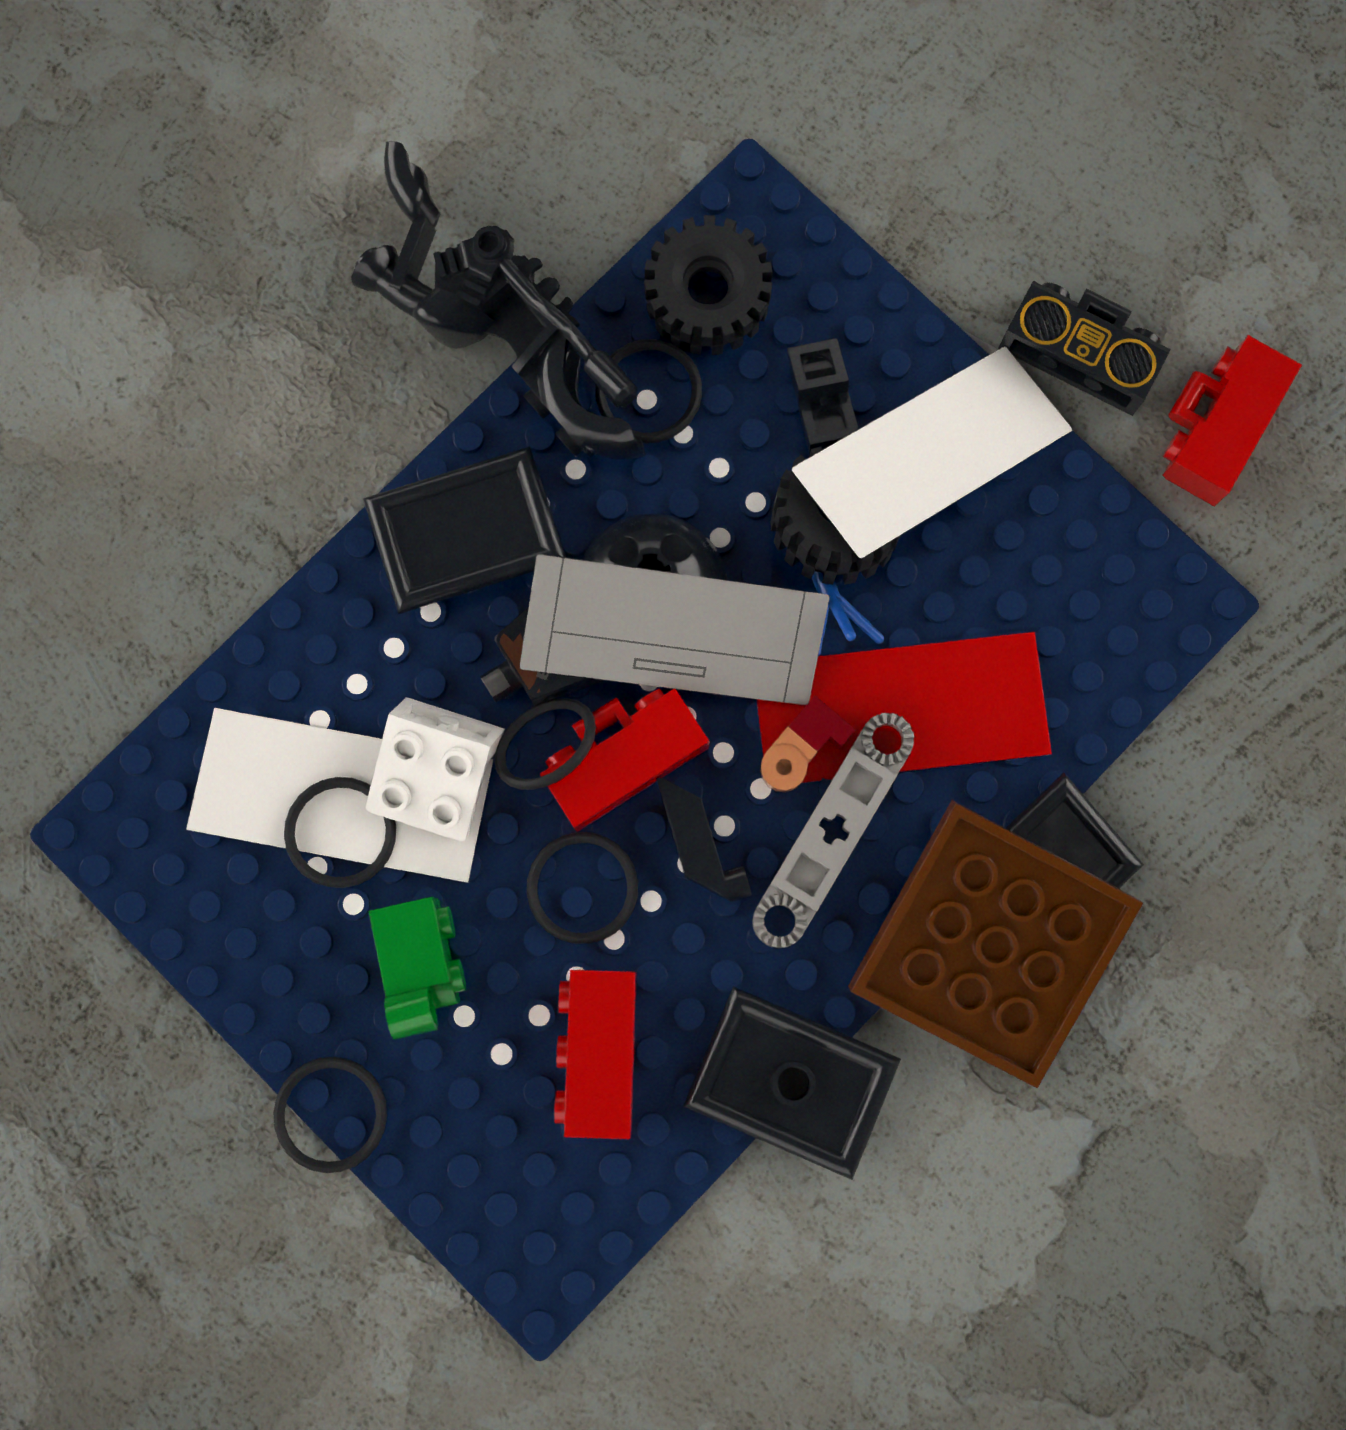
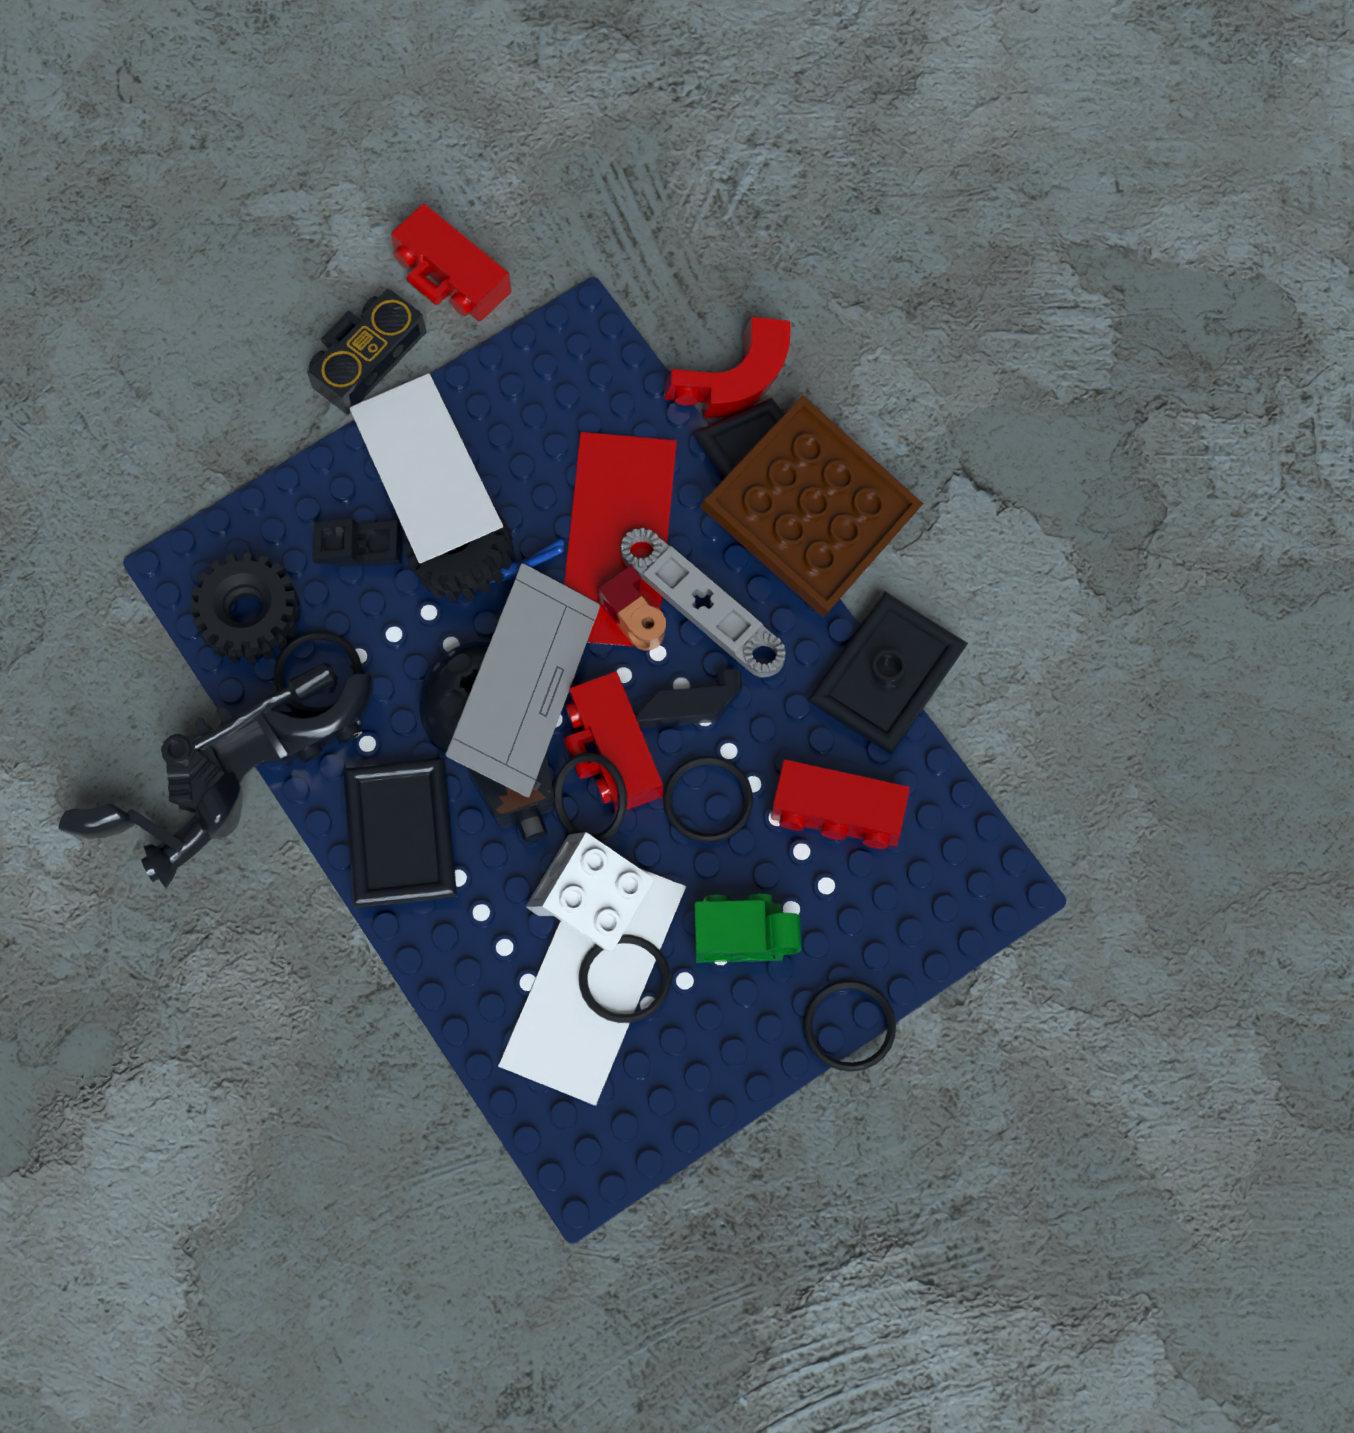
camera: 80 degrees left, 10 degrees down
(1188, 842) = (732, 391): none -> red arch

